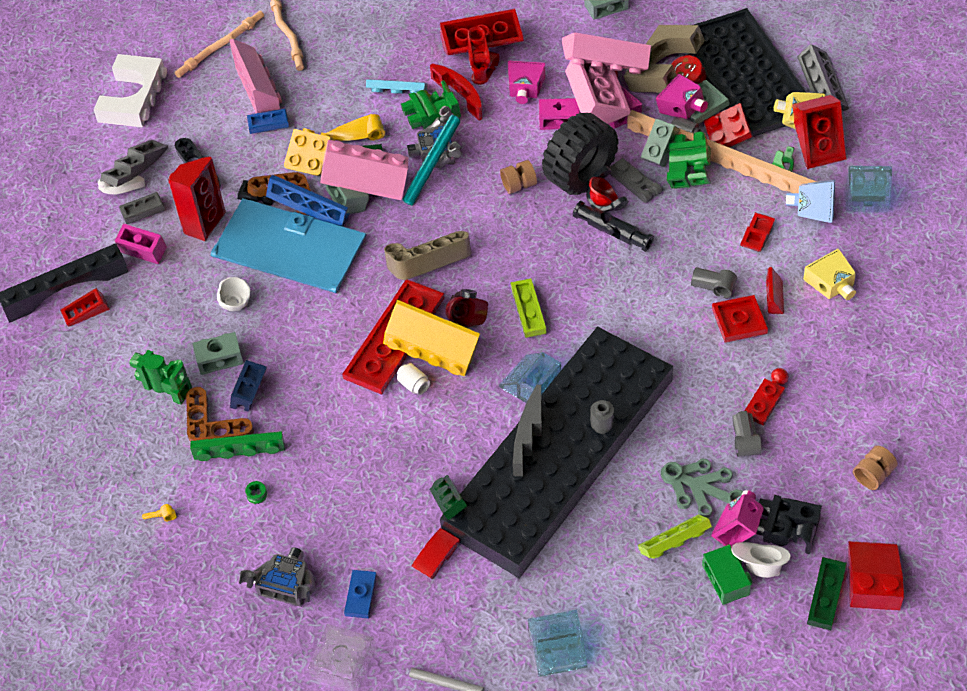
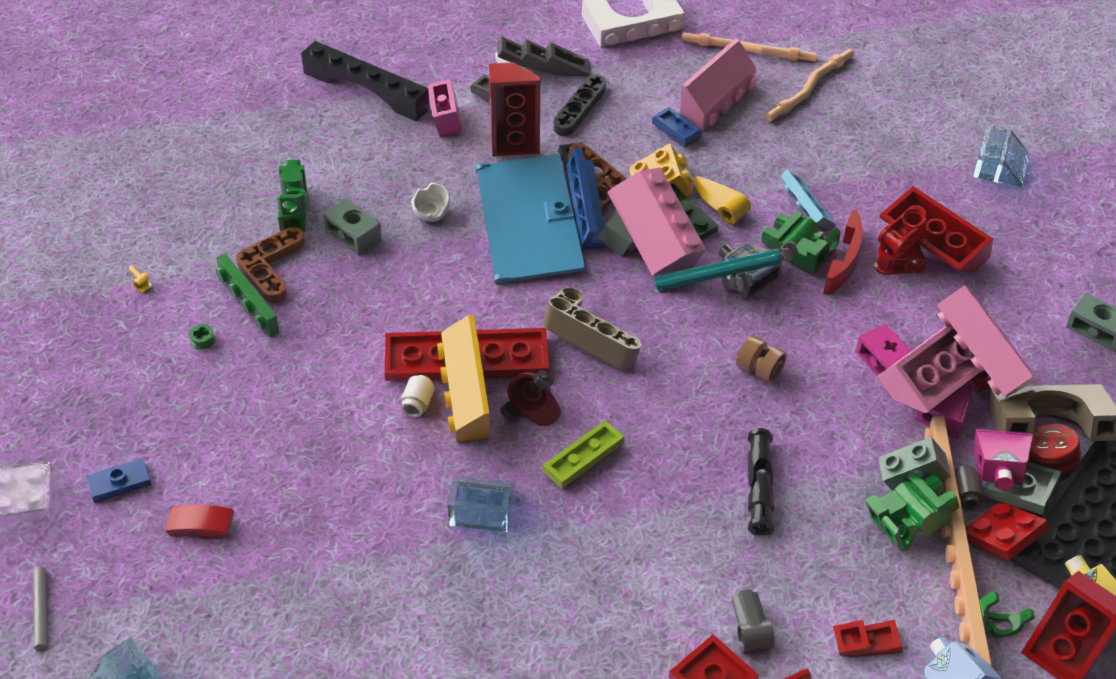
camera: 55 degrees right, 5 degrees down
(94, 309) = (353, 112): red slope -> none
(247, 385) = (324, 263): dark blue hinge -> none
(282, 578) = (100, 403): torso -> none
(447, 497) = (262, 490): dark green plate -> none
(516, 516) = (399, 571): black brick -> none
(525, 79) = (909, 302): dark pink torso -> none
(529, 425) = (389, 514): dark grey slope -> none
(578, 152) = (827, 367): black tyre -> none
(601, 193) = (799, 445): cap -> none
(602, 416) = (438, 579): dark grey brick -> none
(634, 180) = (849, 472): dark grey plate -> none

